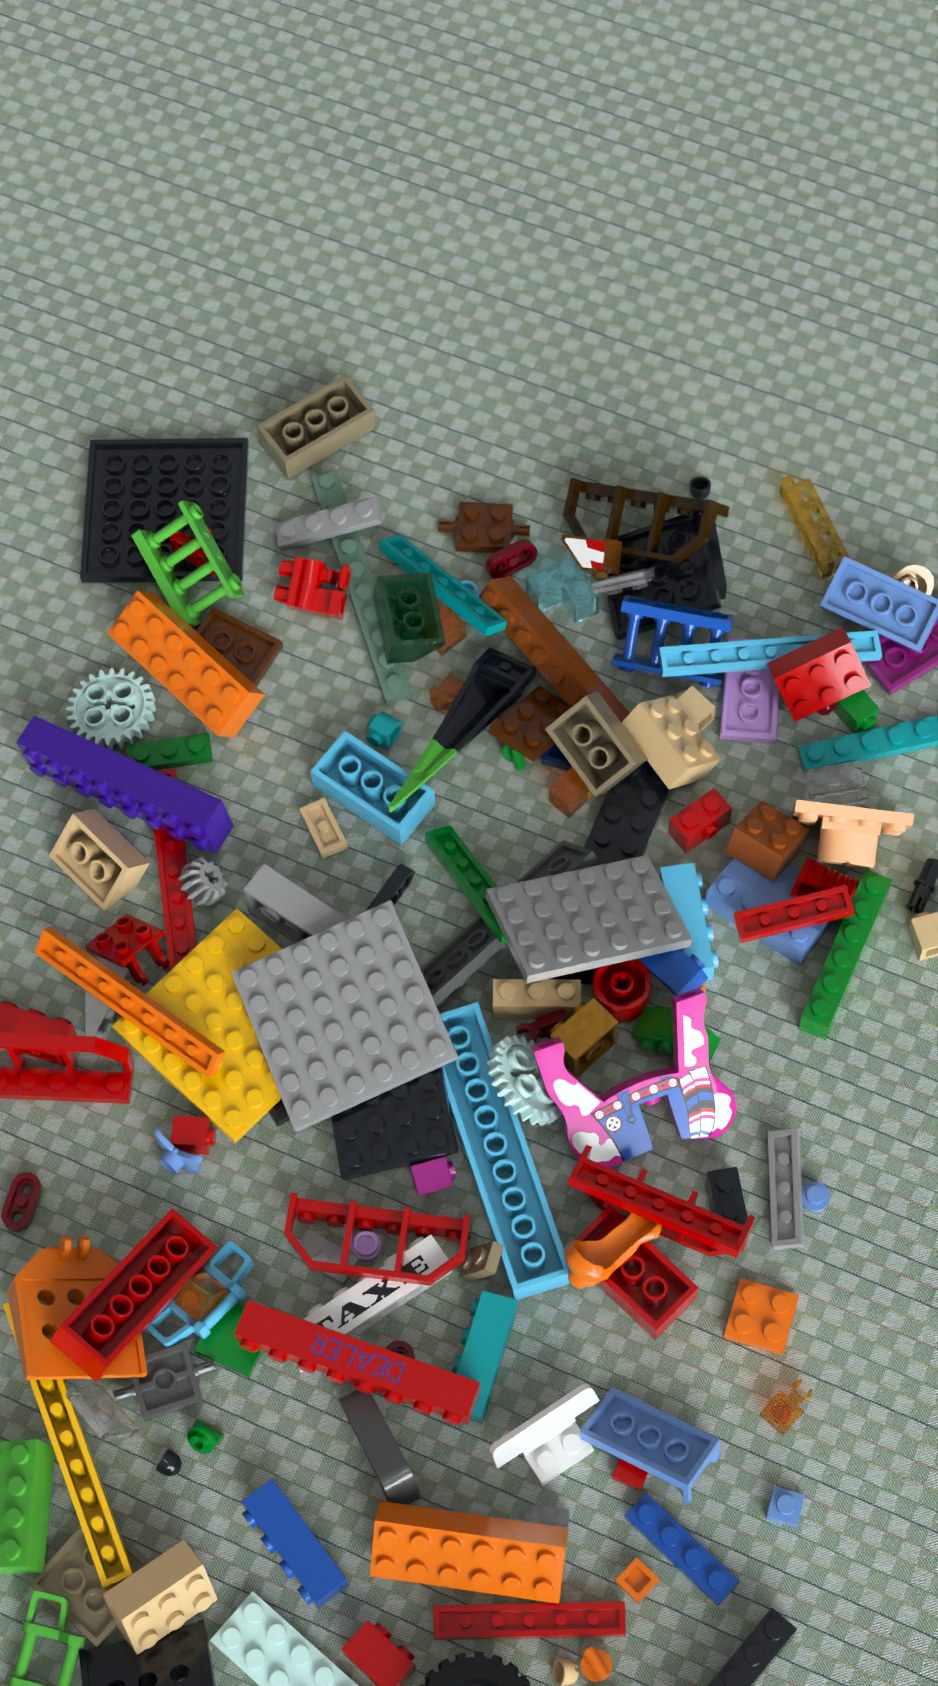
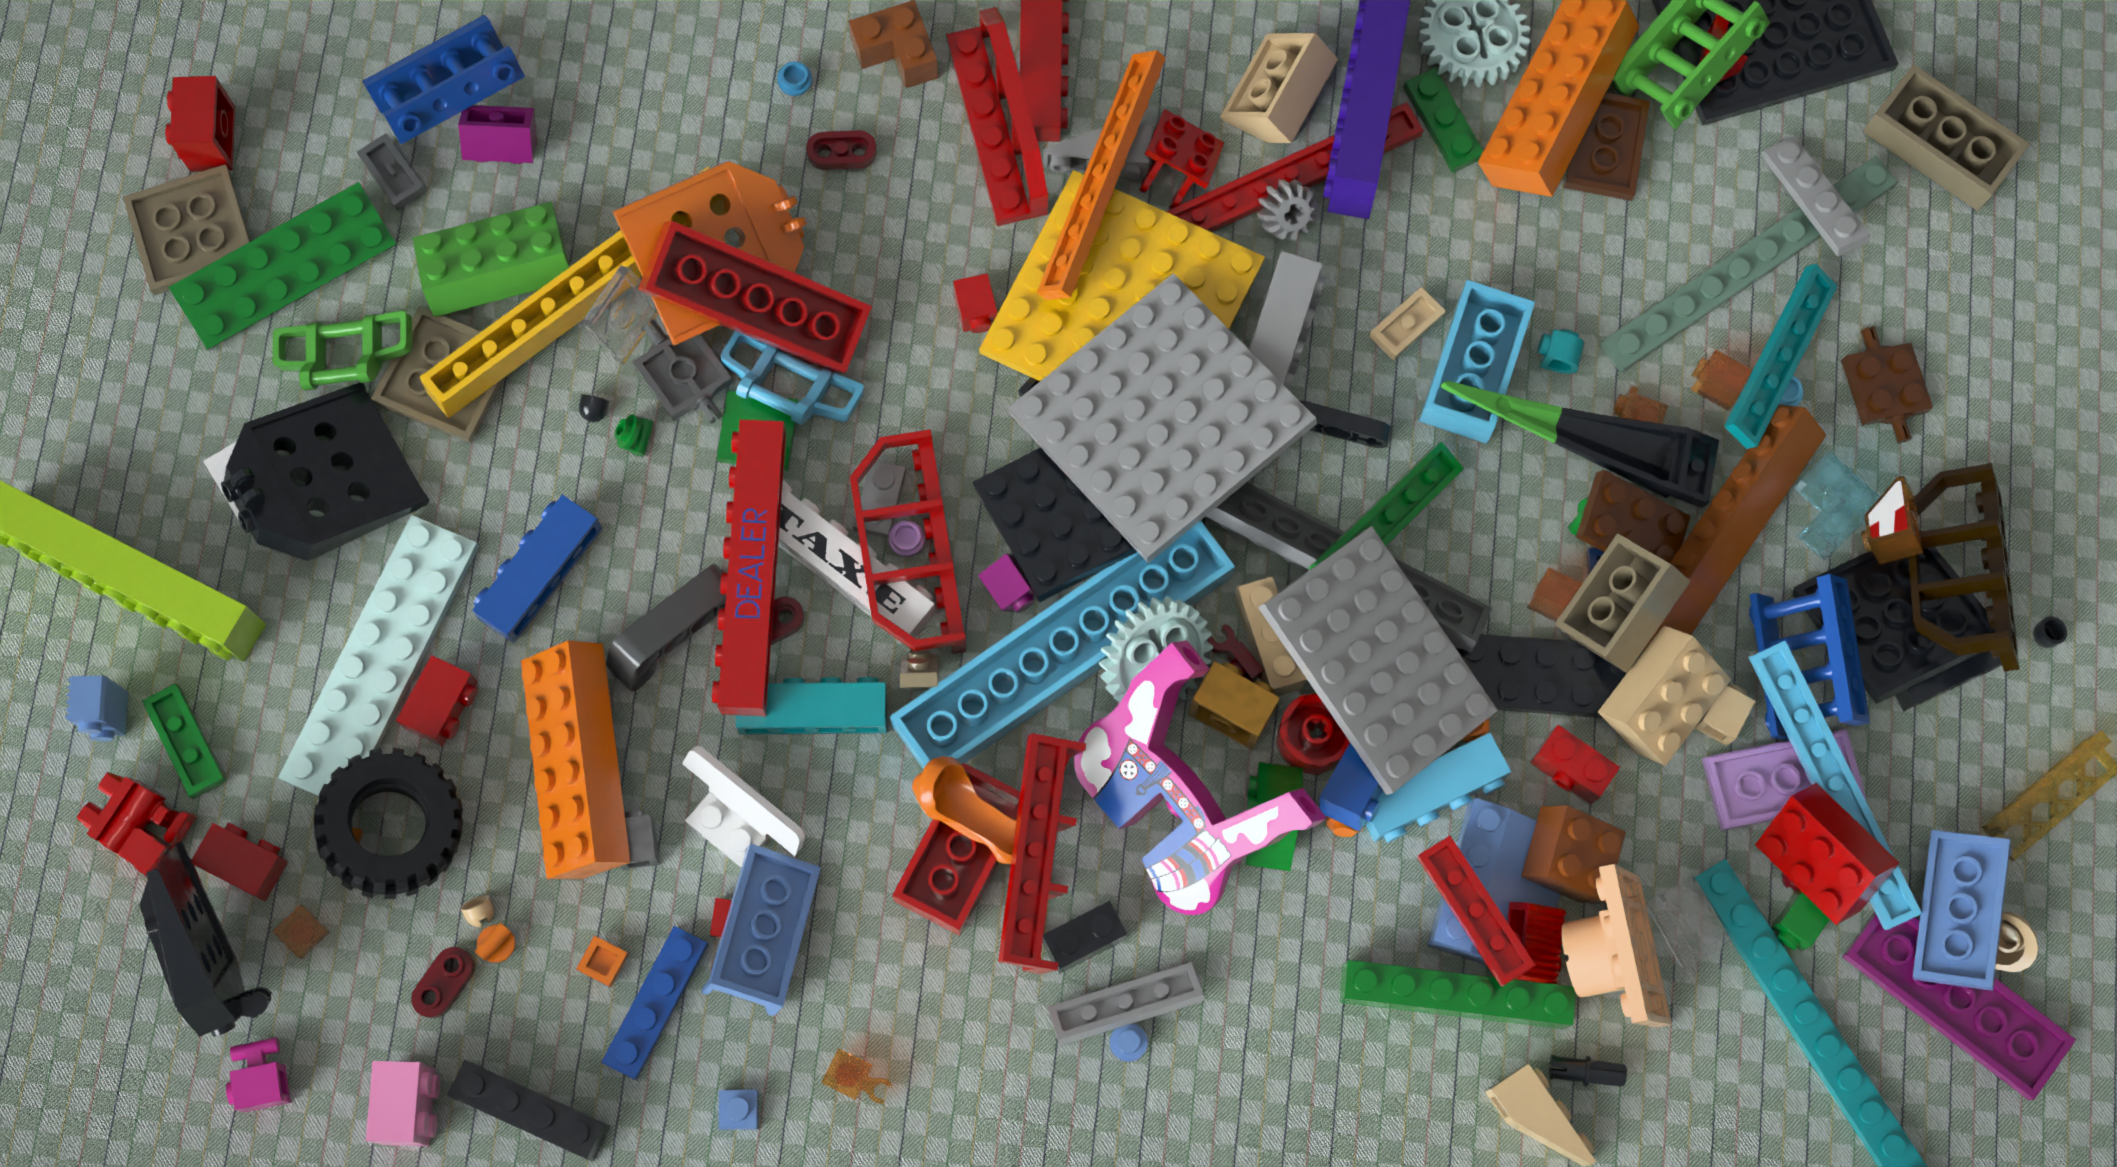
camera: 65 degrees right, 10 degrees up
(160, 1597) = (432, 443): tan brick -> none
(175, 1159) = (939, 289): medium blue animal -> none
(200, 1295) = (782, 372): clear orange brick -> none
(305, 586) = (1719, 196): red hips -> none
(408, 616) = (1718, 327): clear green slope -> none
(511, 559) = (1853, 429): dark red plate -> none
(529, 1620) = (524, 854): red plate -> none
(614, 584) = (1868, 572): clear plate -> none
(761, 1316) = (959, 1018): orange plate -> none

